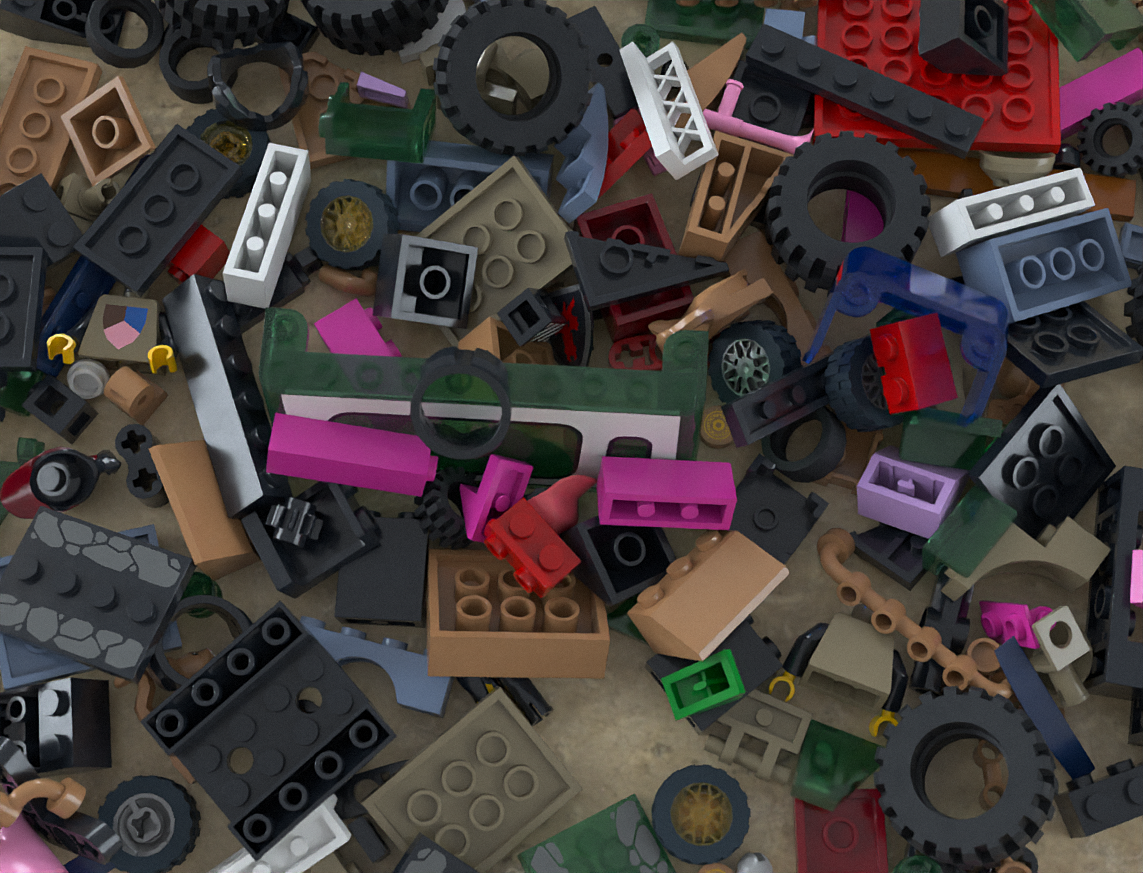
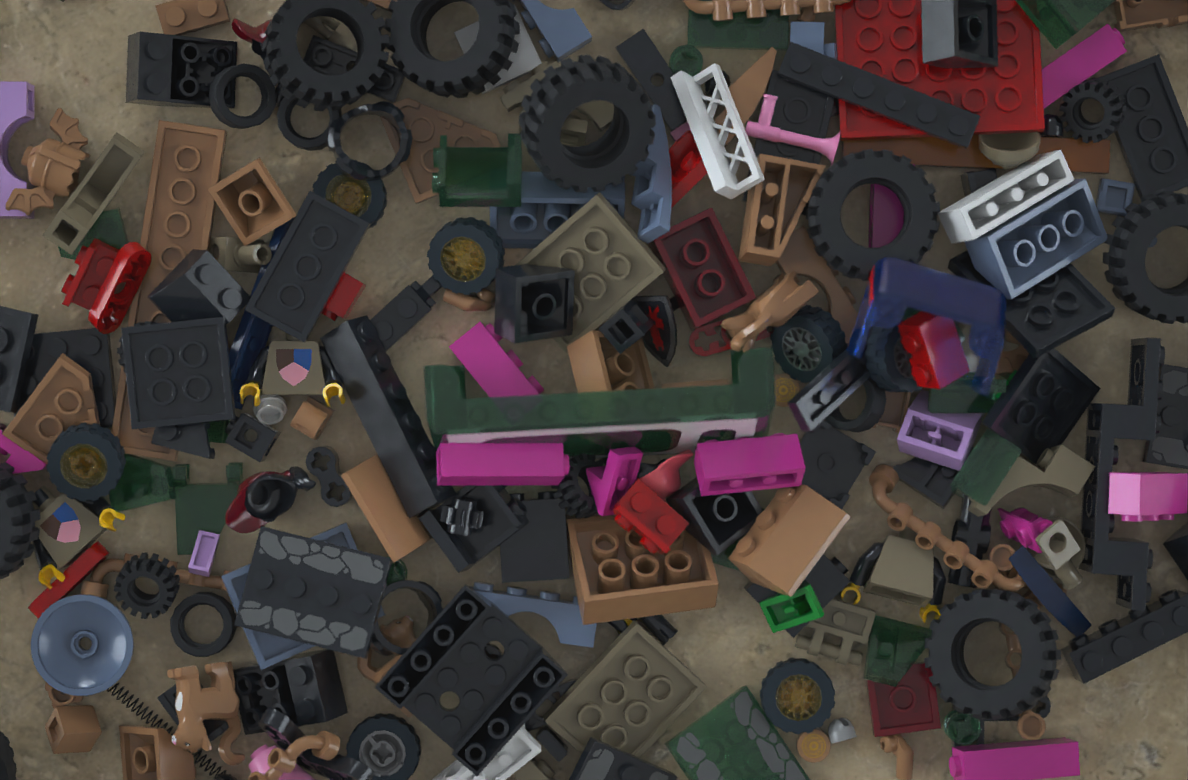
camera: 10 degrees left, 15 degrees up
(267, 226) = (398, 268): white brick -> none
(381, 91) = (468, 132): lavender piece -> none
(444, 438) = (604, 450): black piece -> none
(622, 272) = (696, 285): black wing -> none

